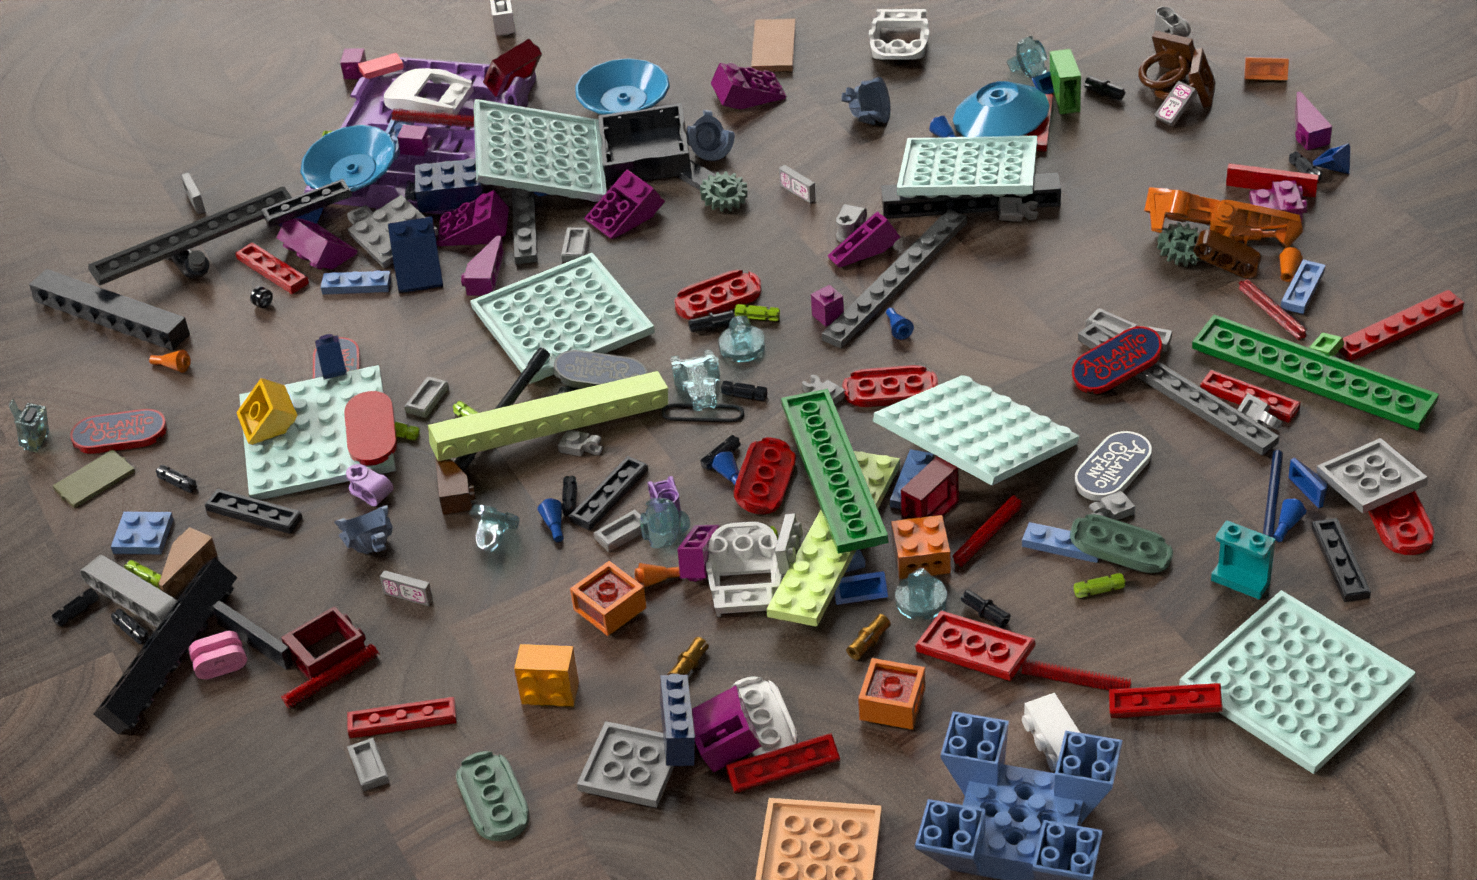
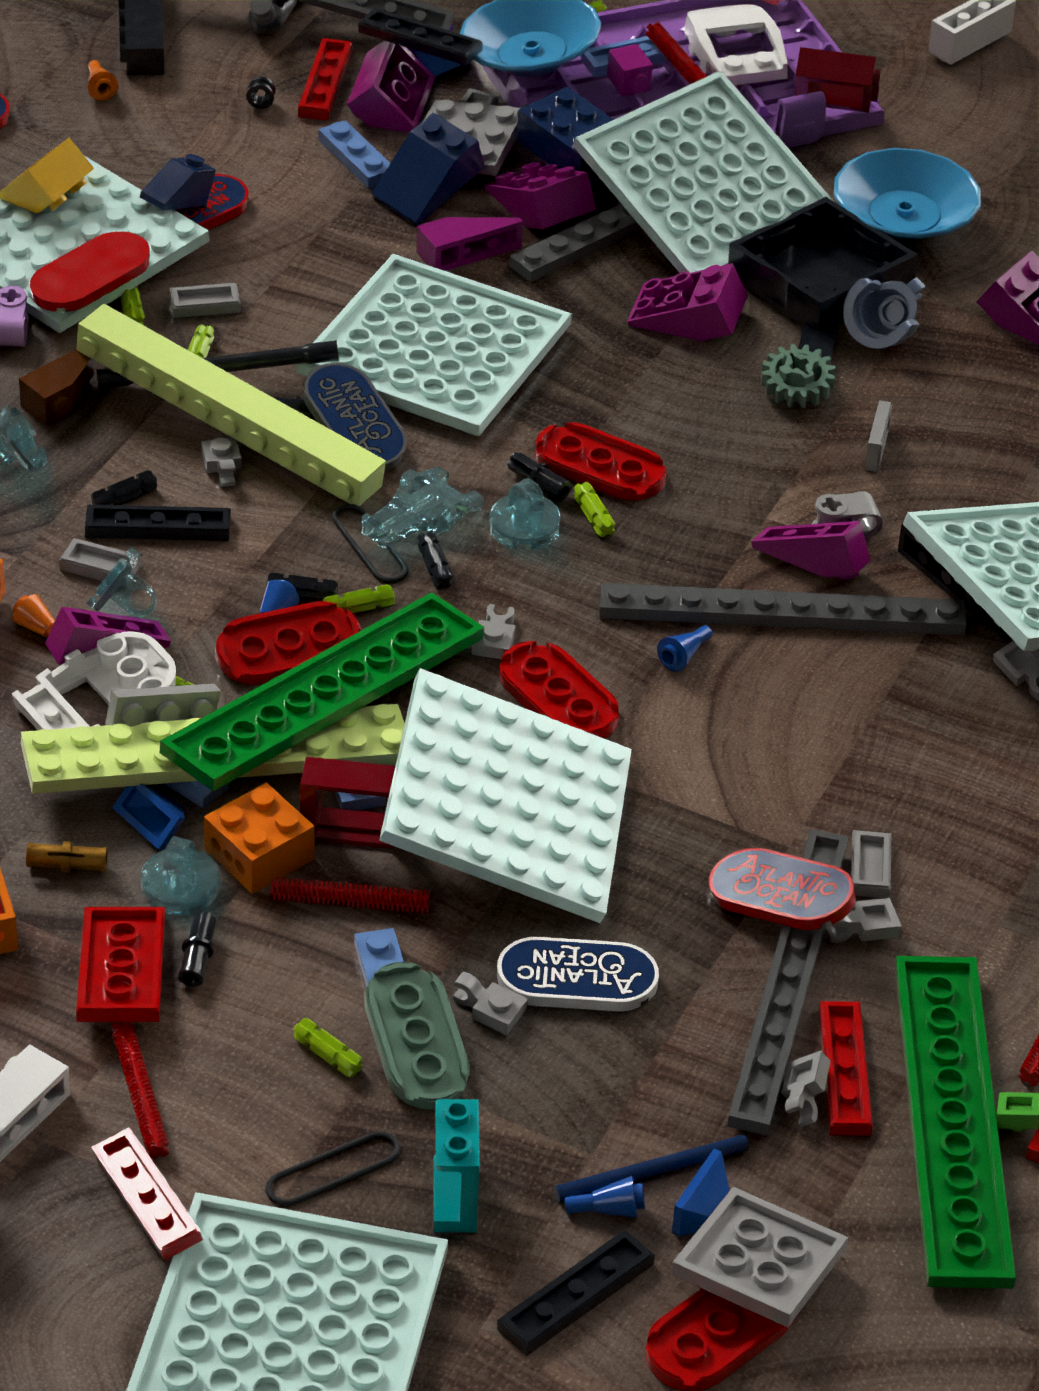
camera: 50 degrees right, 0 degrees up
(551, 512) = (75, 489): blue cone -> none
(575, 243) = (586, 296): light grey tile -> none
(665, 489) = (179, 572): medium lavender piece -> none
(752, 432) = (364, 599): none -> lime axle
(827, 305) = (653, 560): magenta brick -> none
(1198, 621) = (378, 1134): none -> black piece

